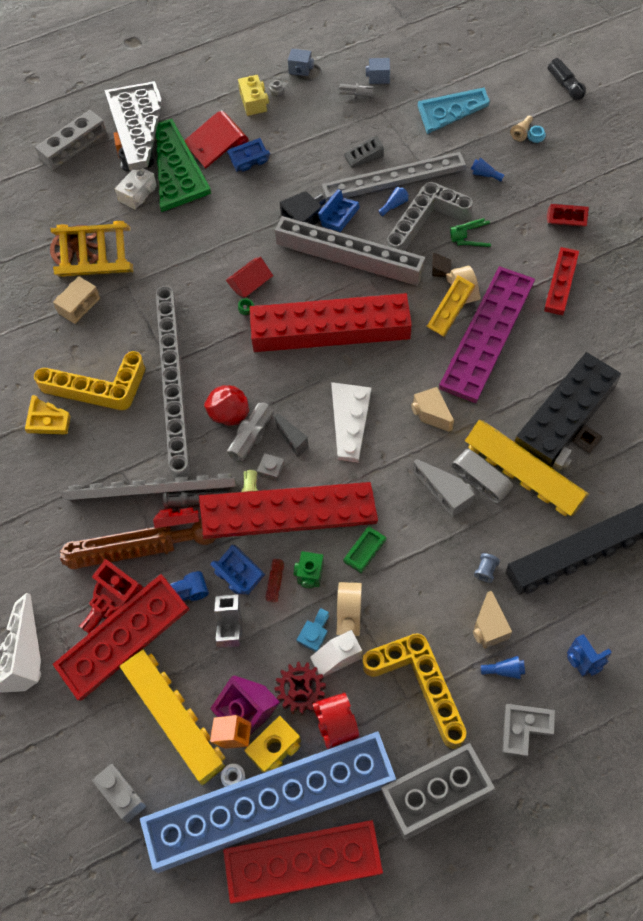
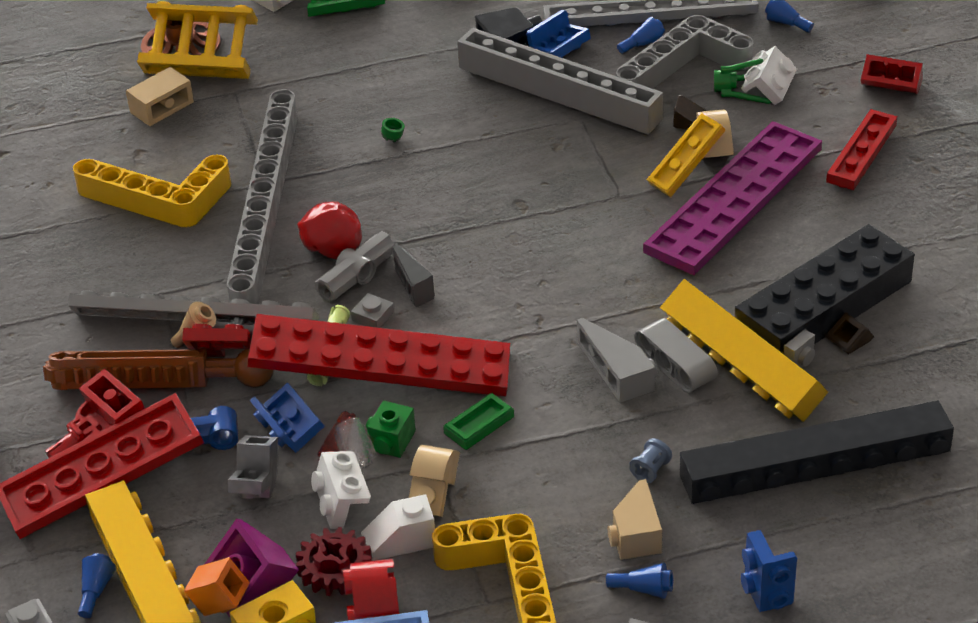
camera: 10 degrees right, 20 degrees down
(46, 418) = (75, 220): yellow wing -> none
(142, 728) = (95, 576): none -> blue cone
(158, 501) = (197, 314): none -> tan cone
(249, 277) = (408, 96): red brick -> none
(289, 626) = (339, 485): none -> white bracket
(290, 588) = (355, 437): none -> clear brick
(314, 633) = (379, 500): dark azure plate -> none
(330, 322) = (507, 157): red brick -> none
(350, 417) = (503, 271): white wing -> none
(432, 409) = (625, 271): tan slope -> none
(489, 229) = (771, 76): none -> white bracket

